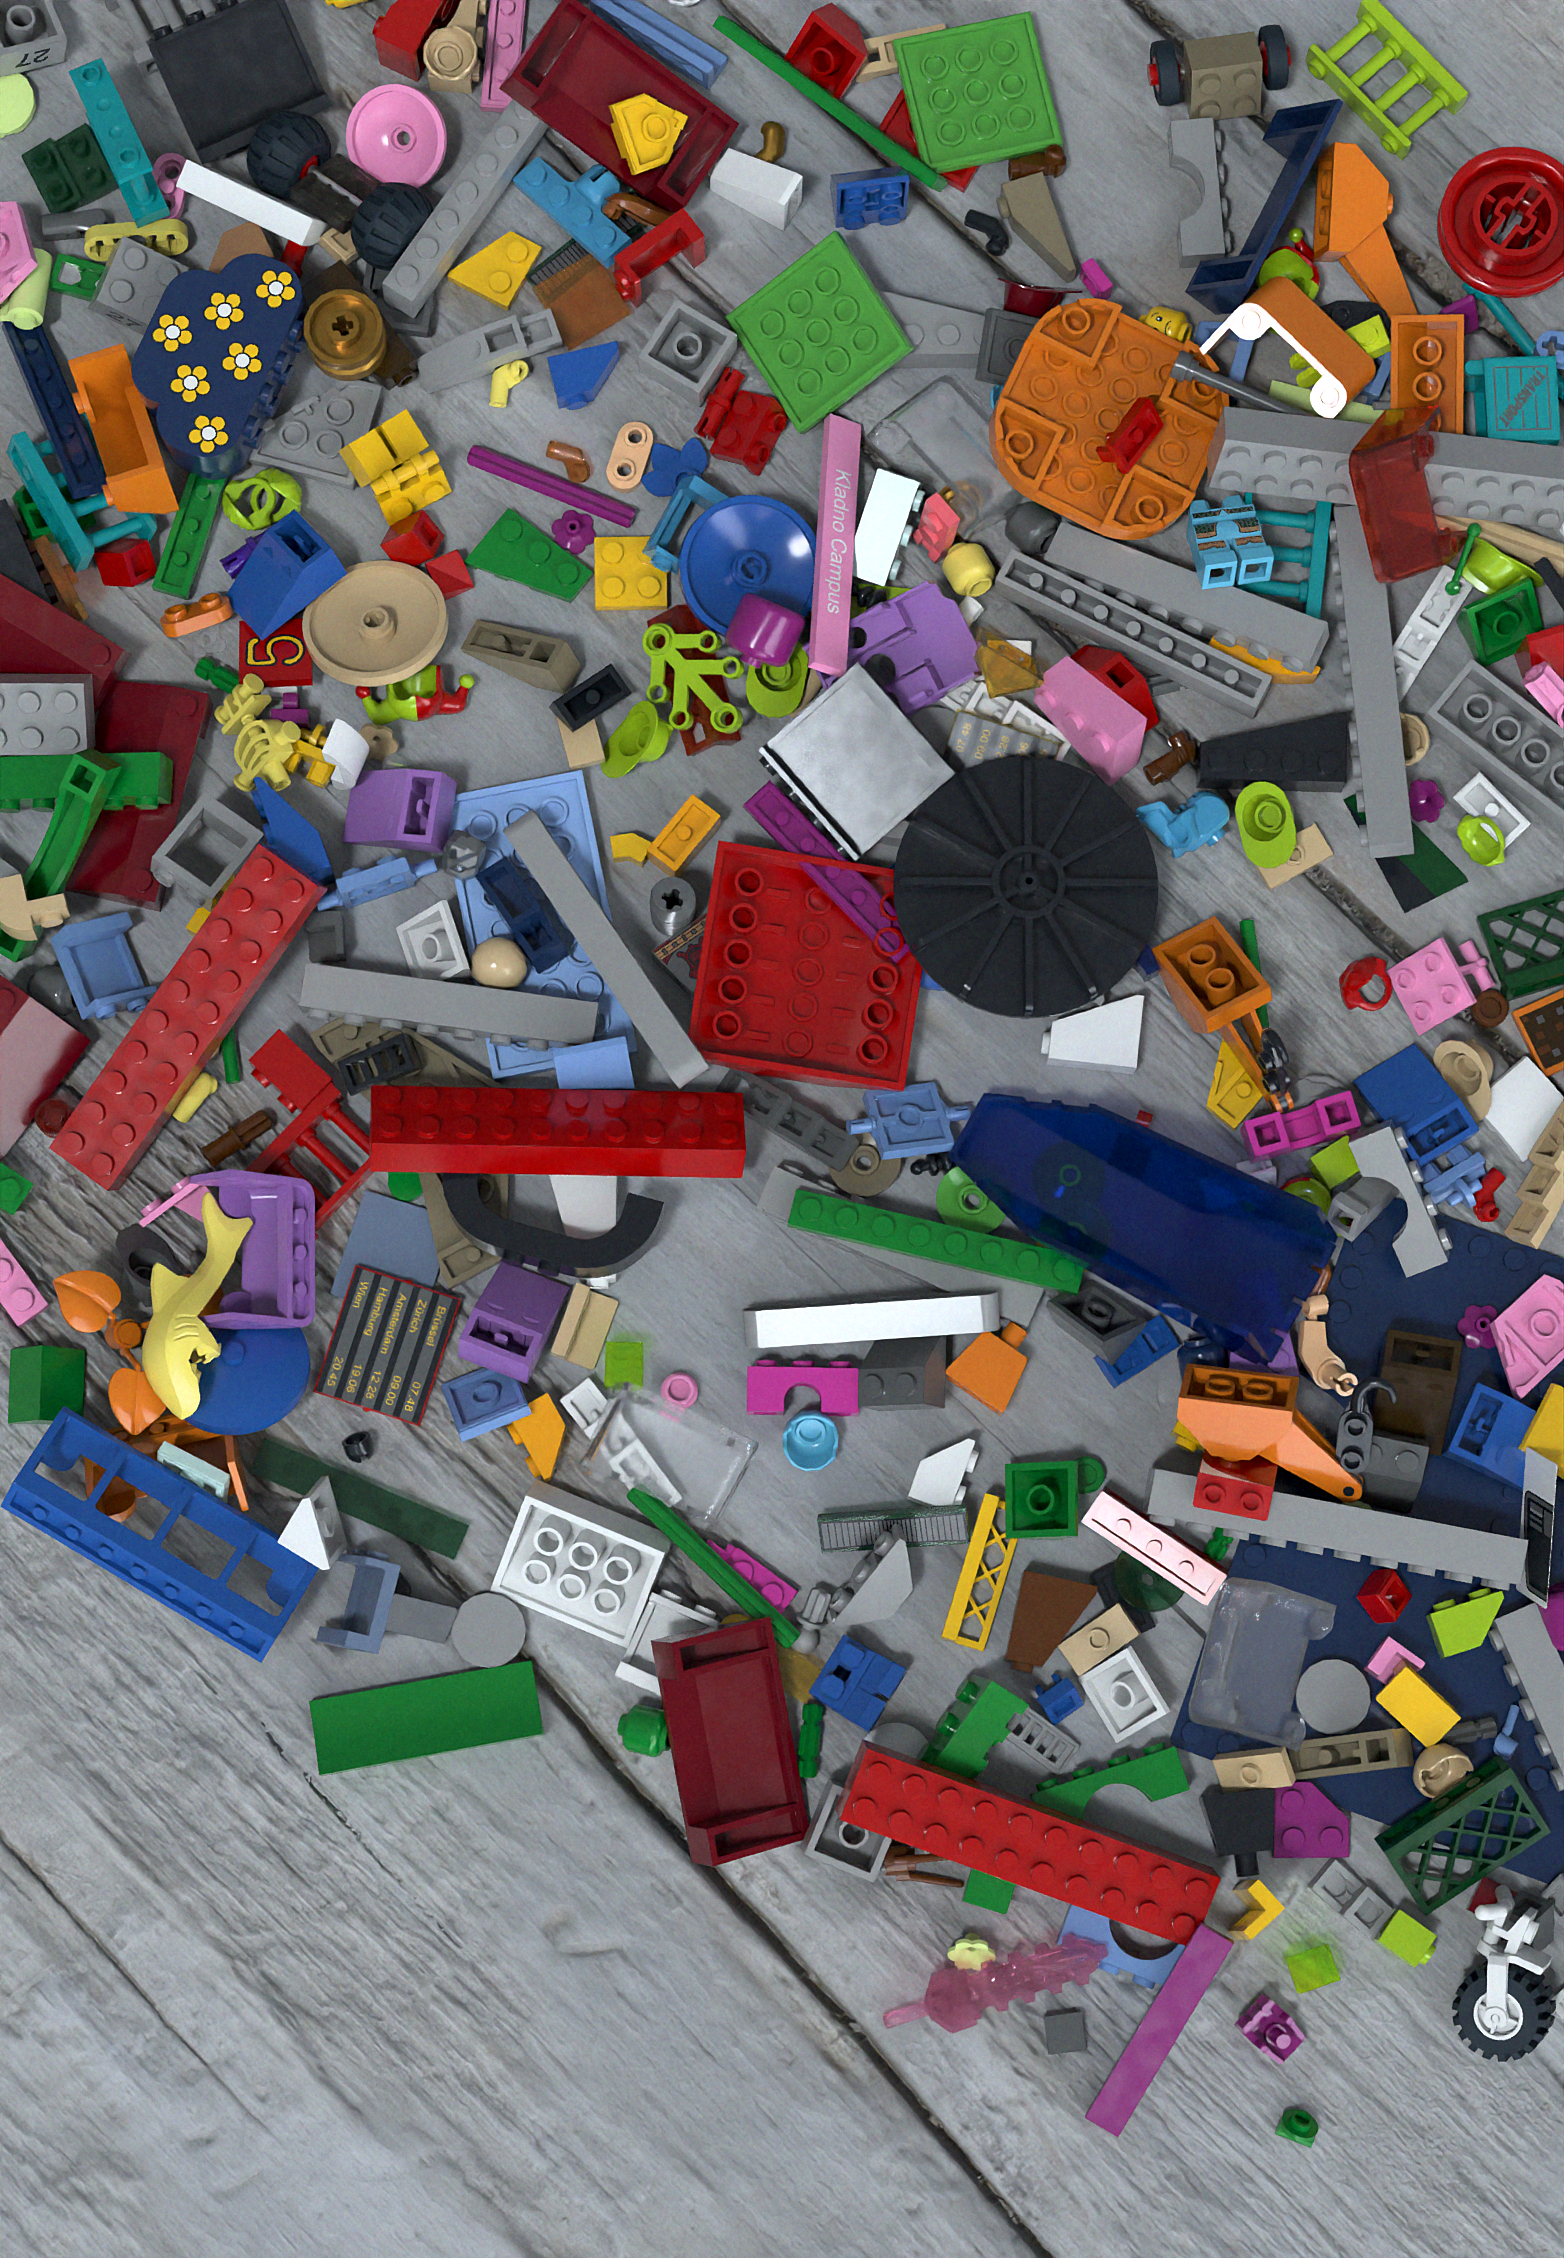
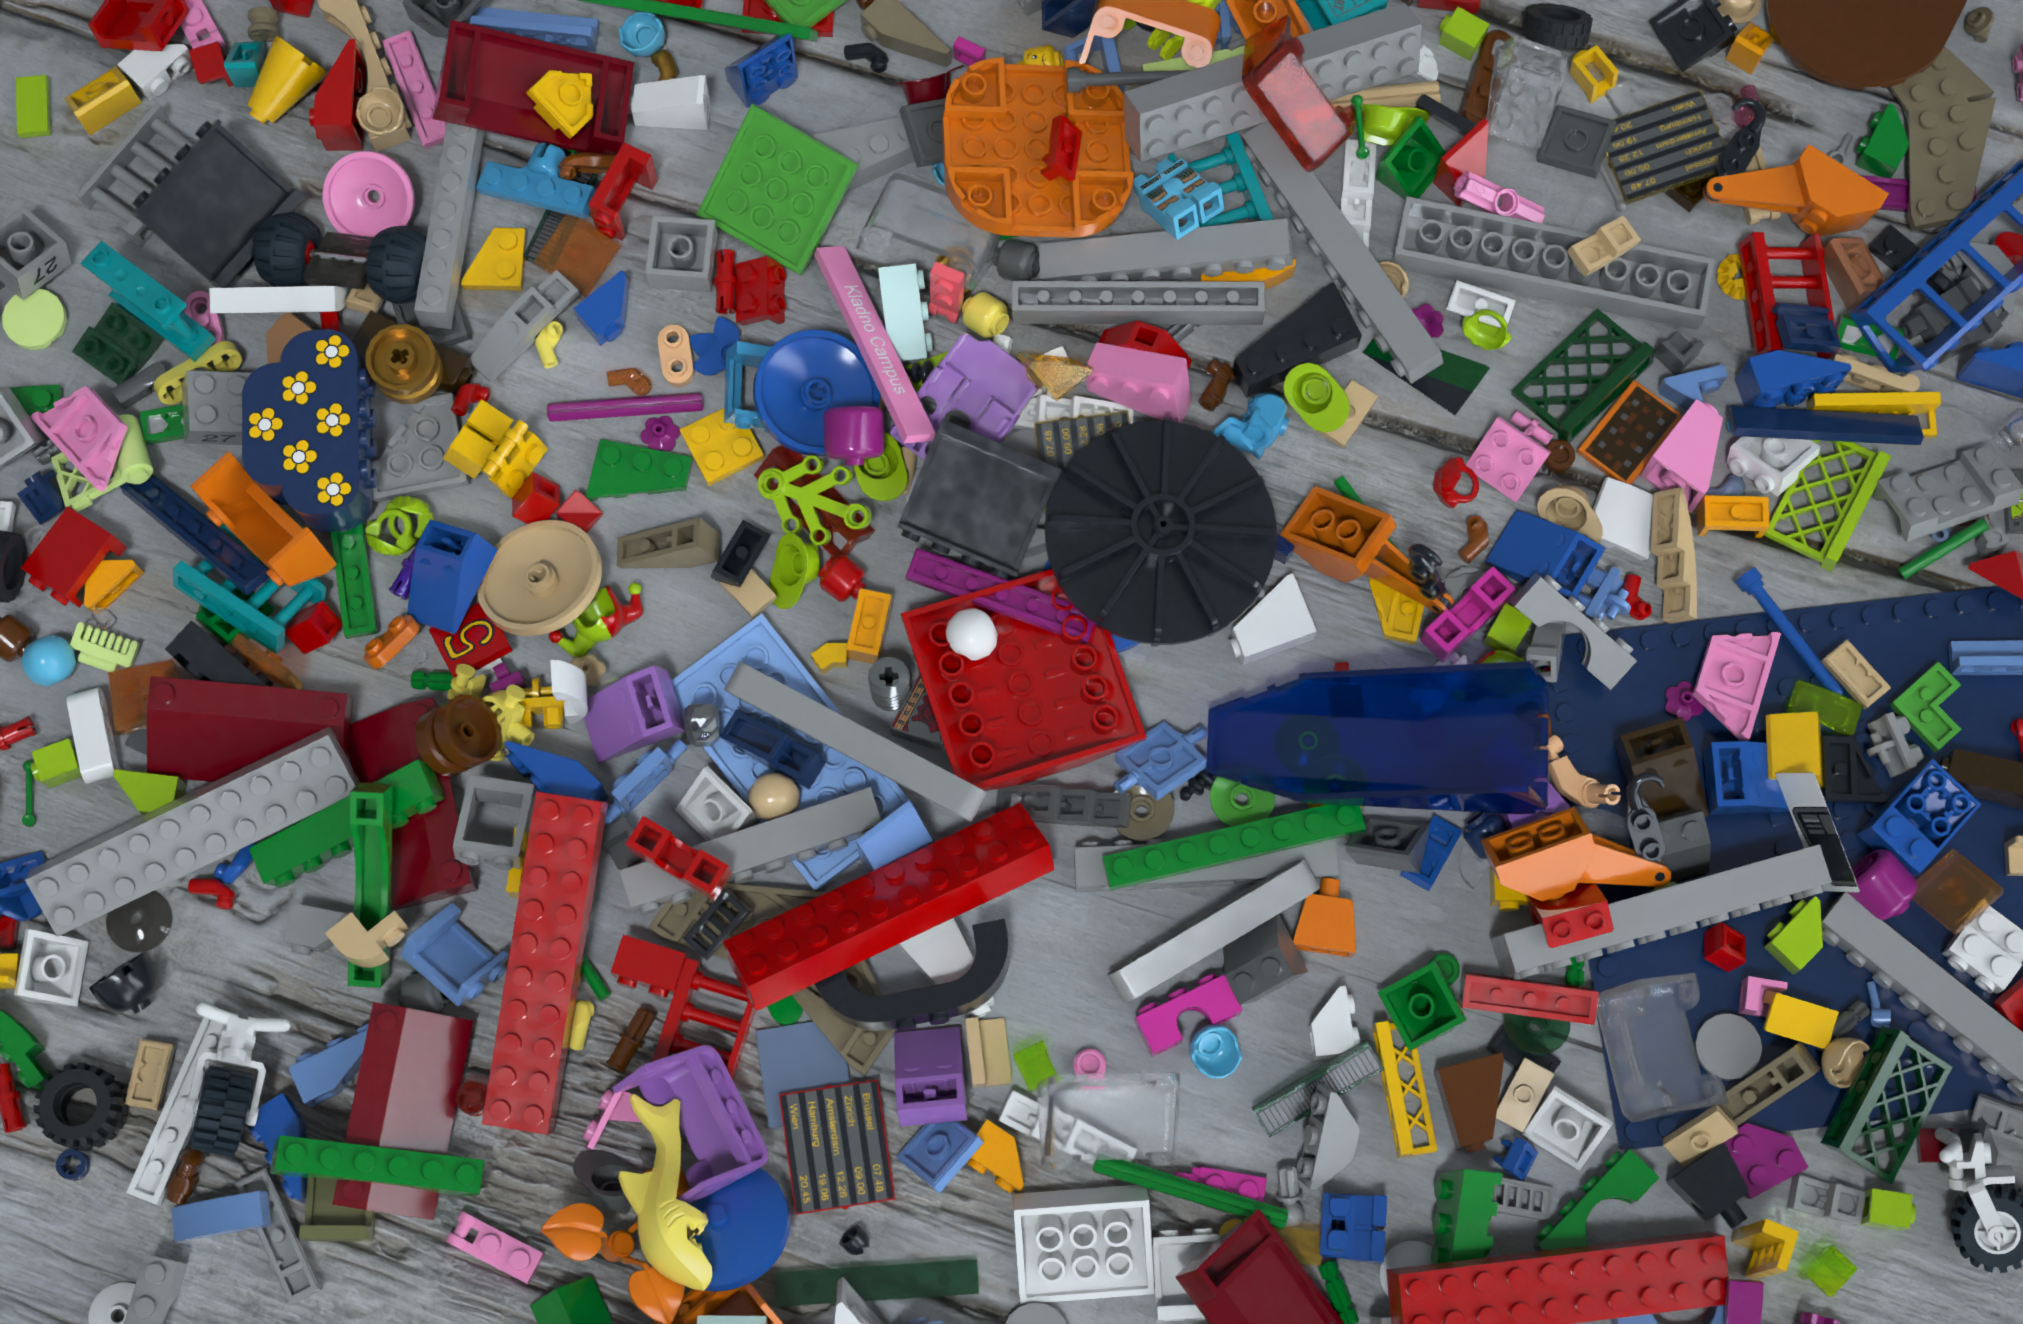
camera: 25 degrees left, 5 degrees down
(212, 746) = (457, 735): none -> reddish brown wheel
(368, 980) = (678, 859): none -> red arch
(397, 395) = (468, 395): none -> red arm
(681, 773) = (842, 578): none -> red head
(764, 96) = (642, 34): none -> medium azure hair
(779, 897) = (971, 633): none -> white hair
(1357, 1054) = (1477, 537): none -> dark orange arm

